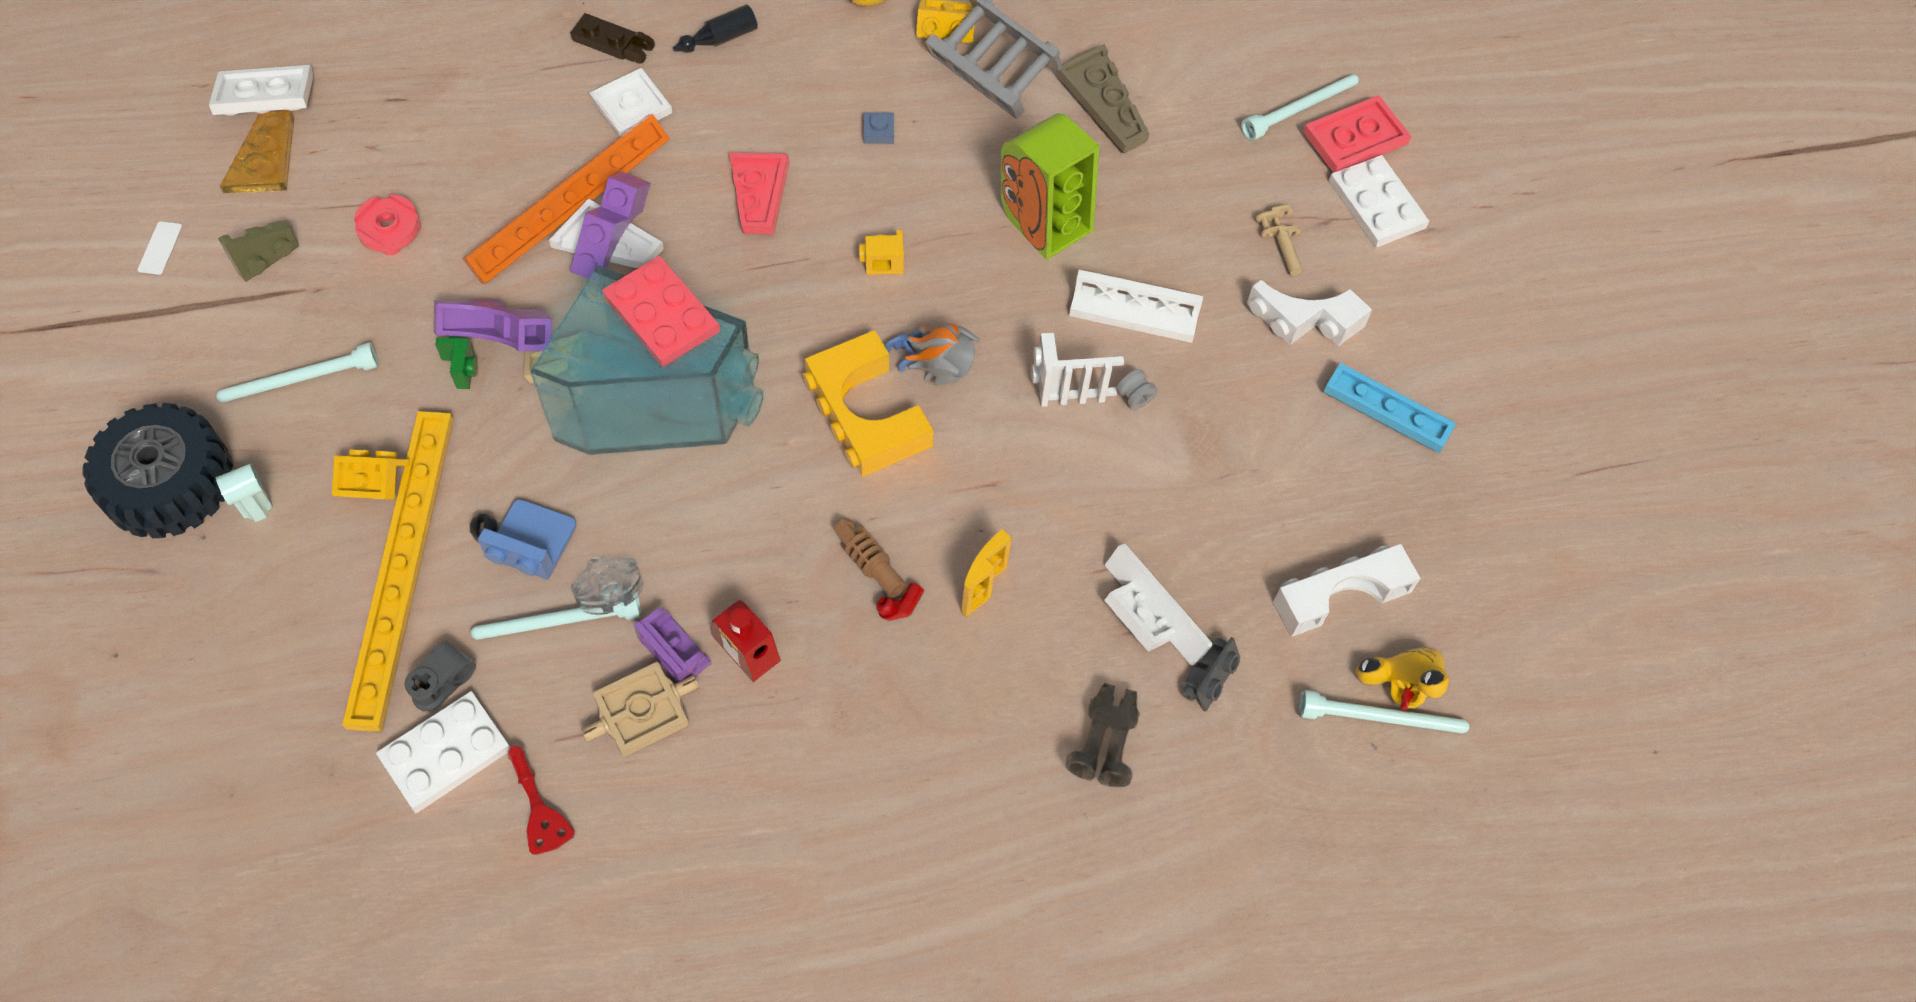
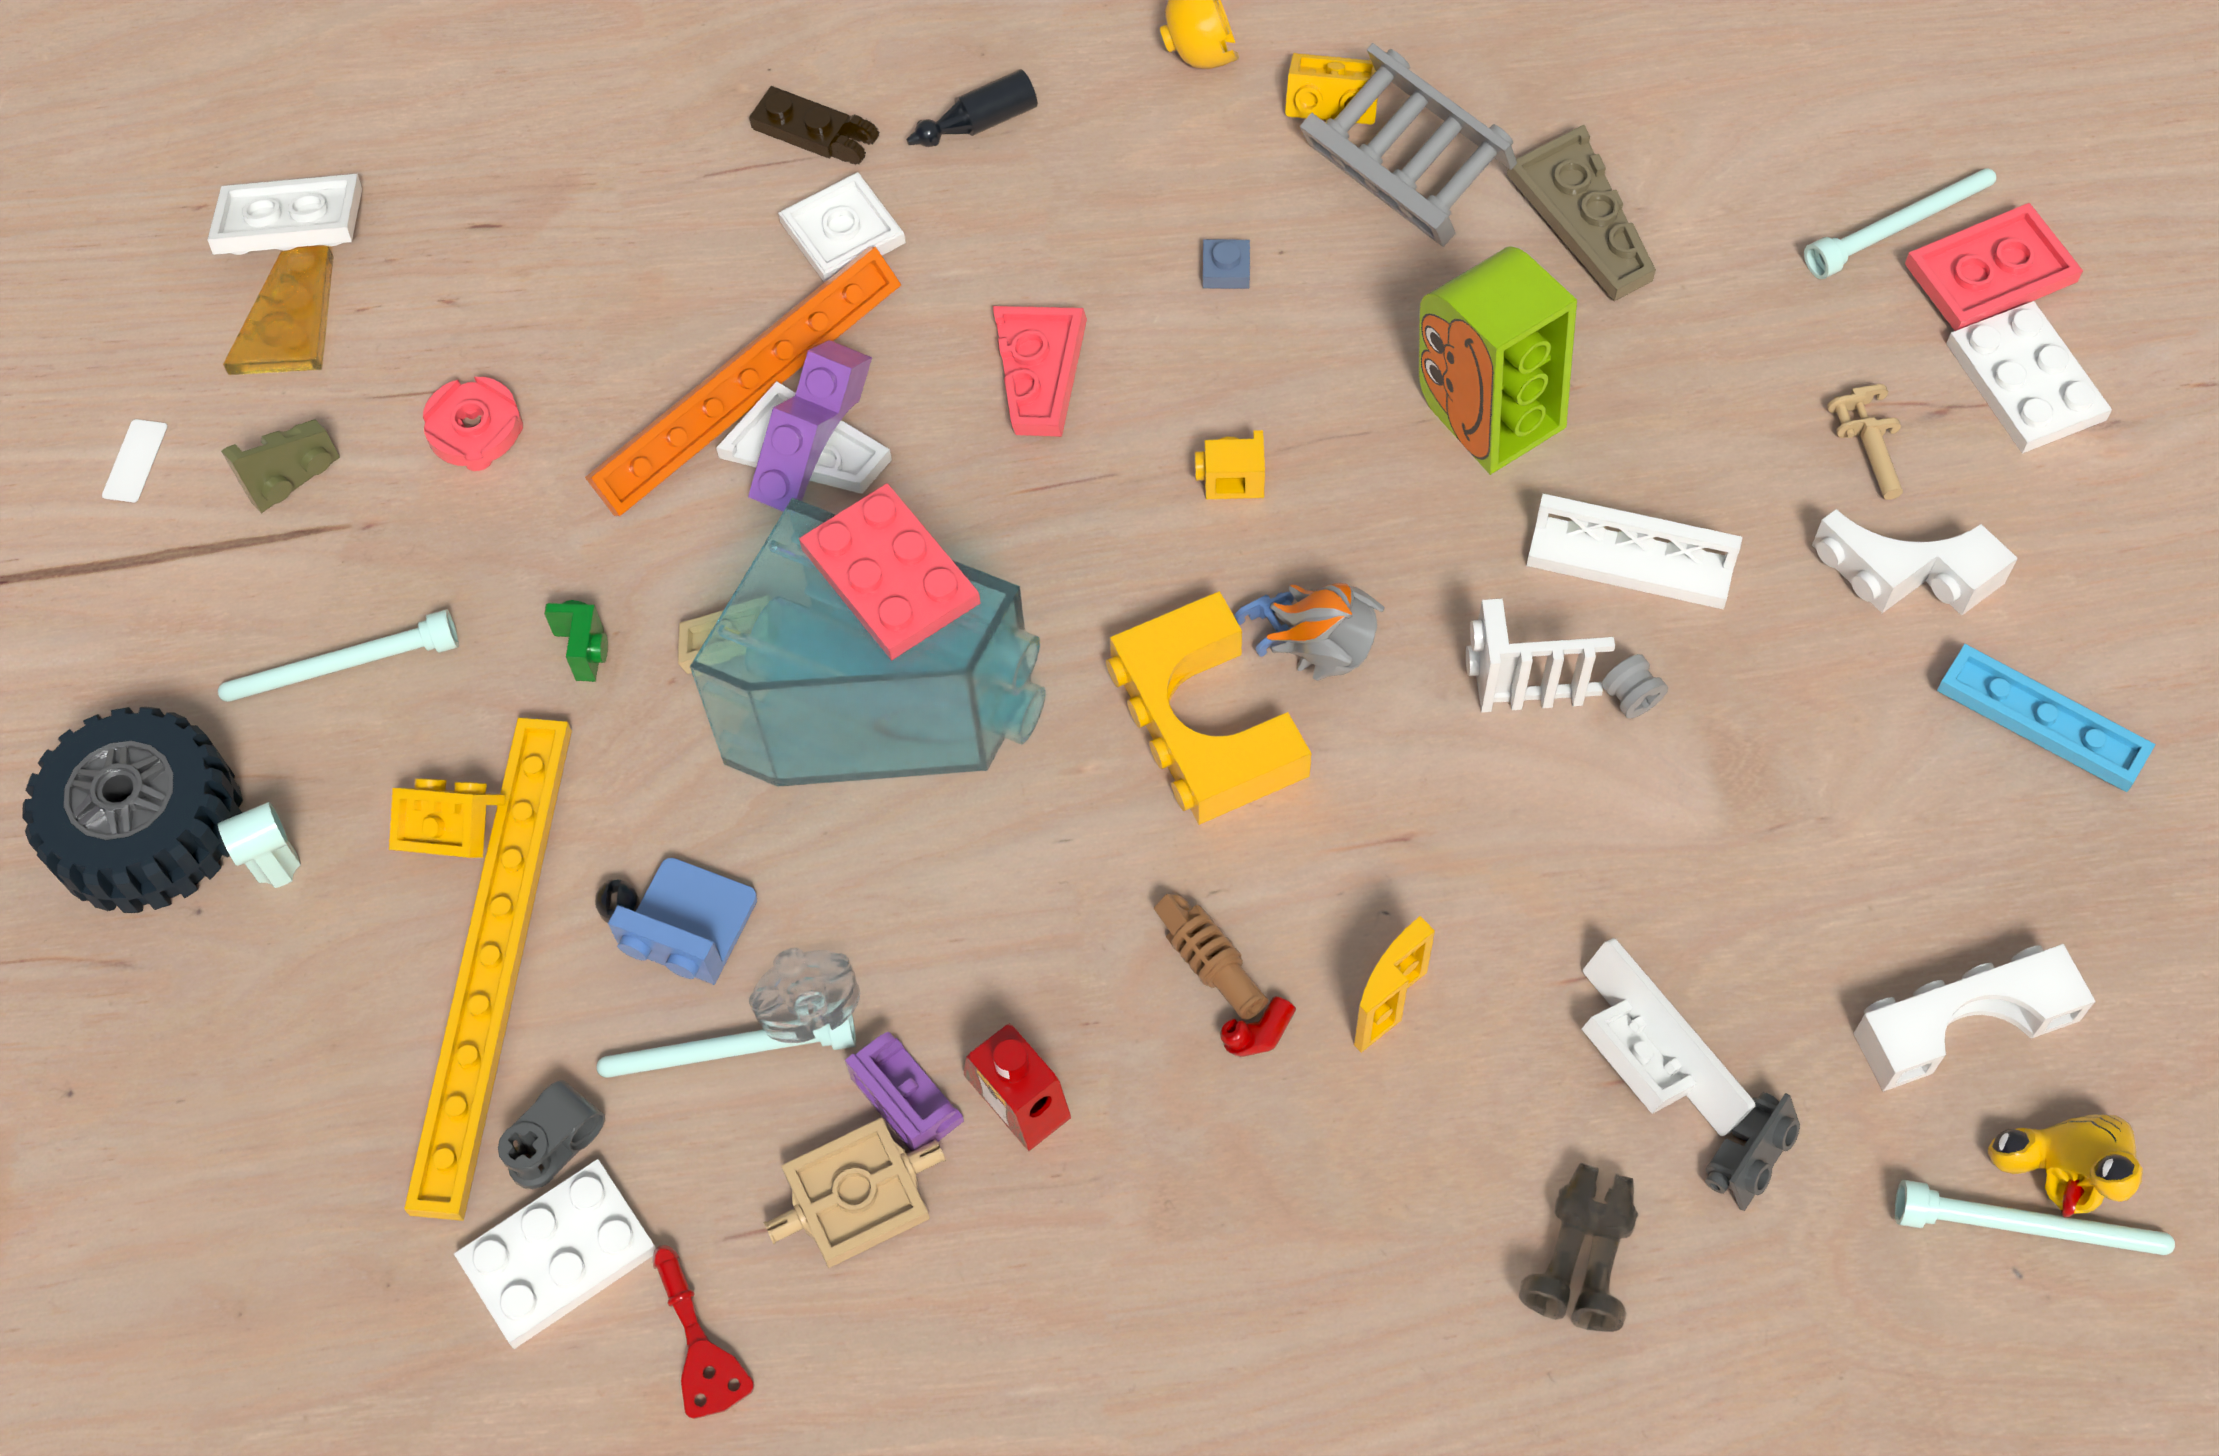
camera: 10 degrees right, 0 degrees up
(493, 321) = (630, 576): medium lavender arch -> none

